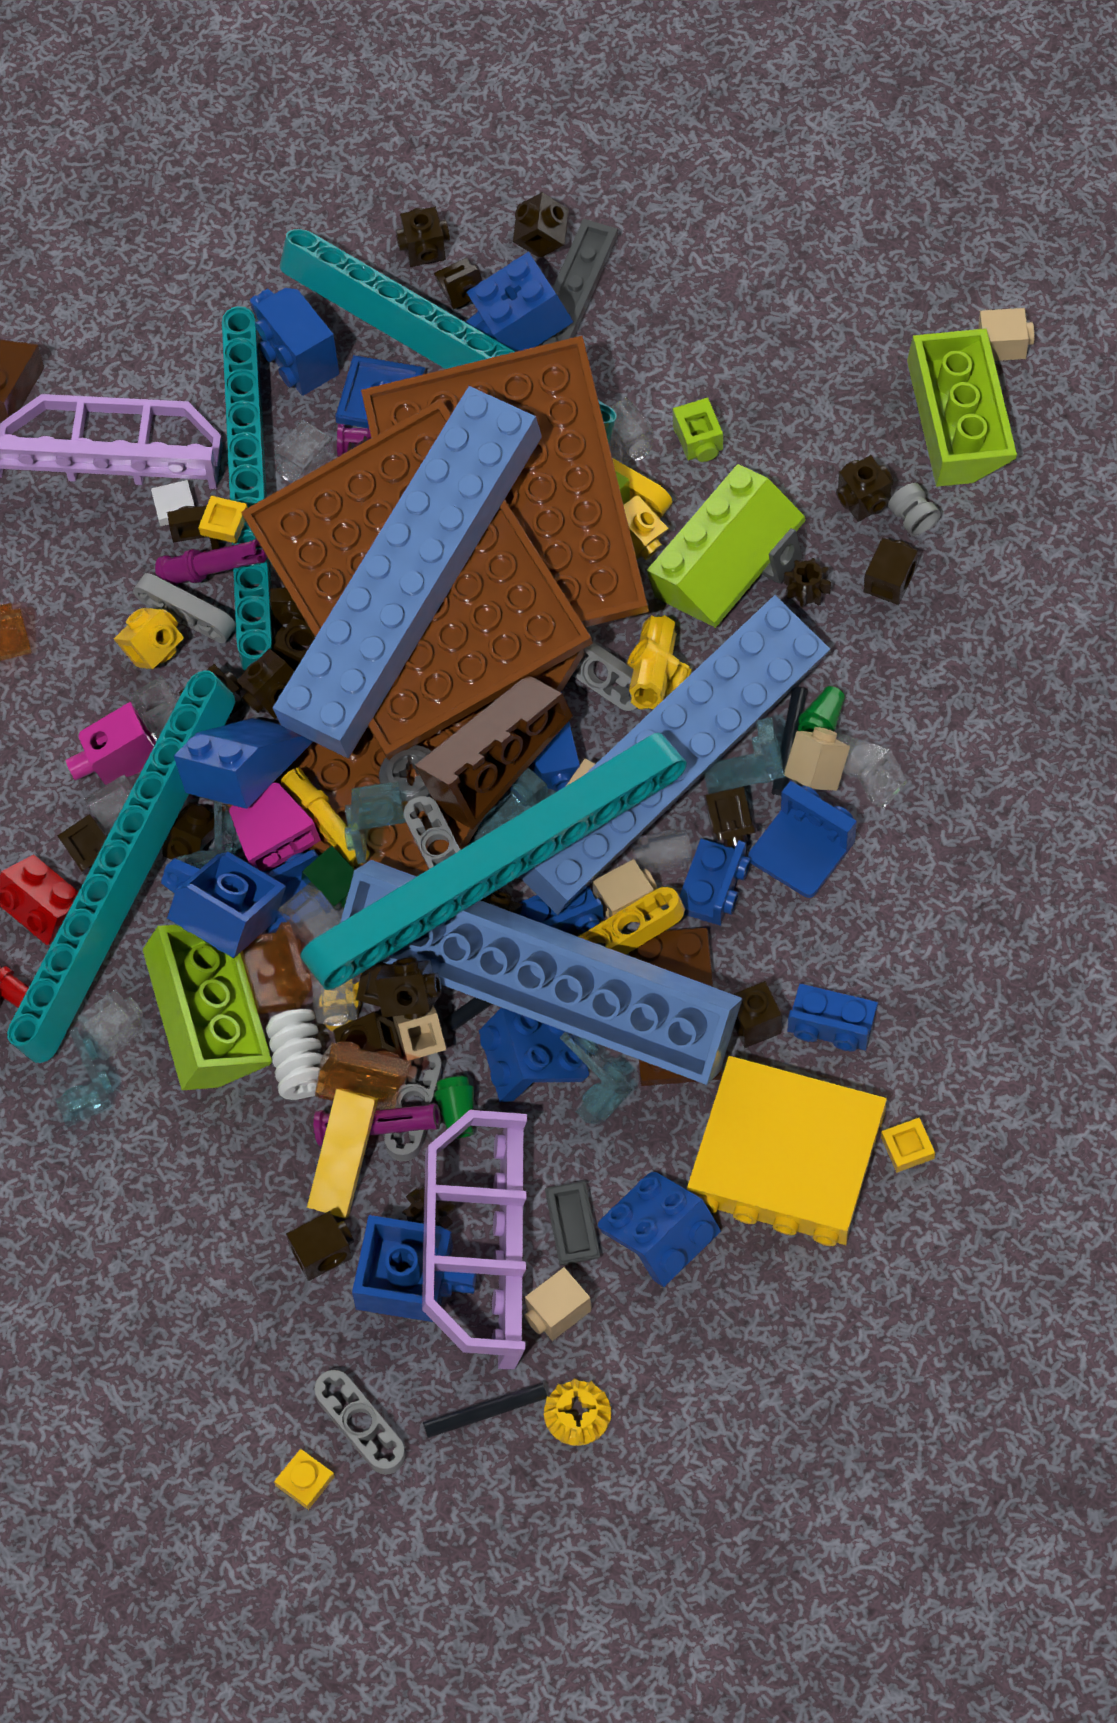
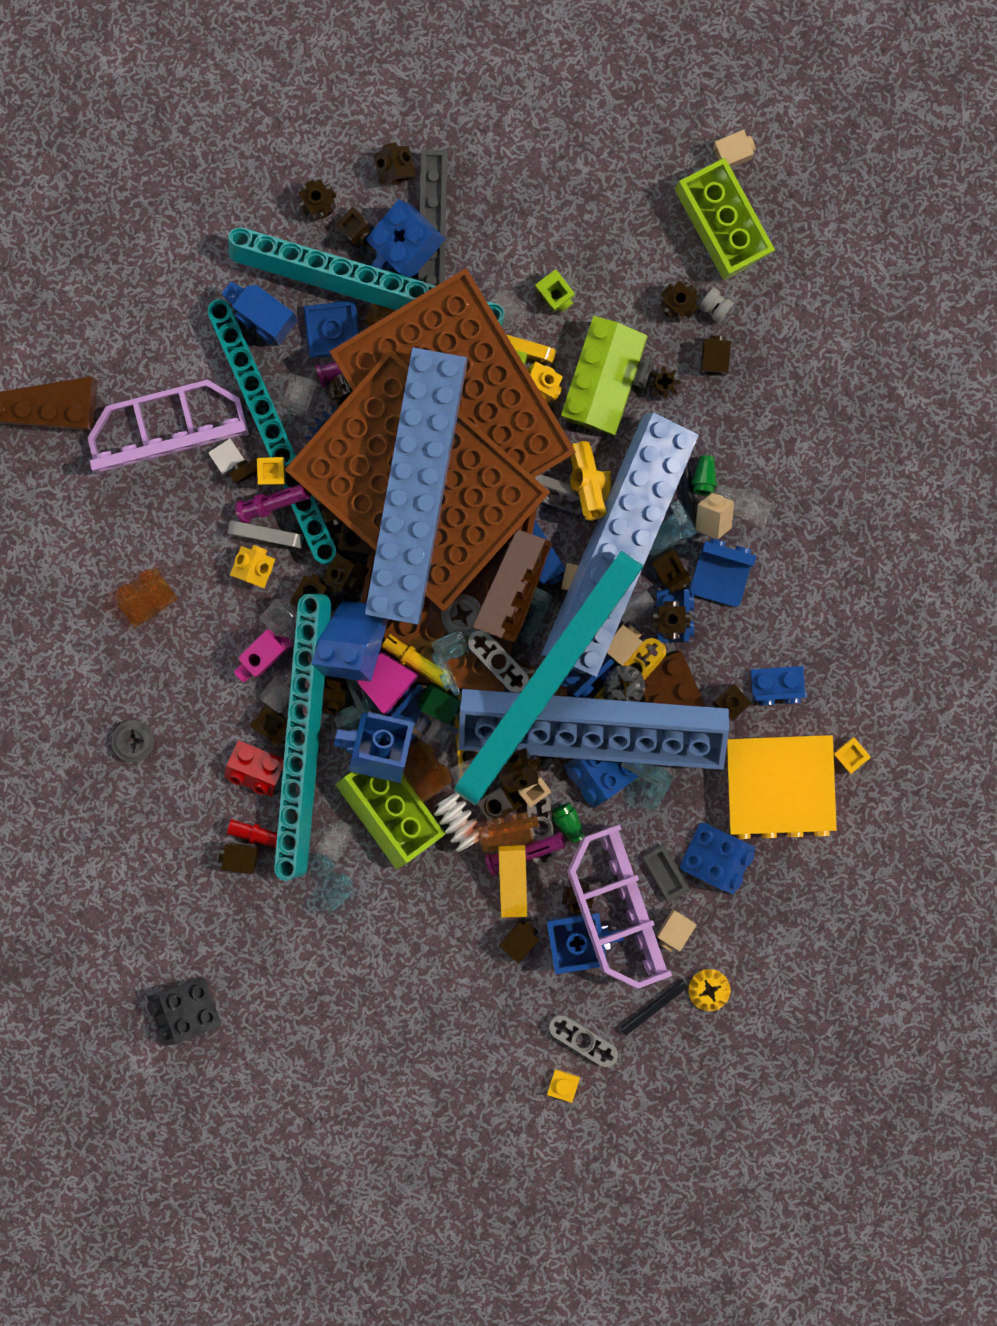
camera: 15 degrees left, 25 degrees up
(621, 930) = (628, 674): none -> flat silver gear
(704, 868) = (669, 631): none -> dark brown brick

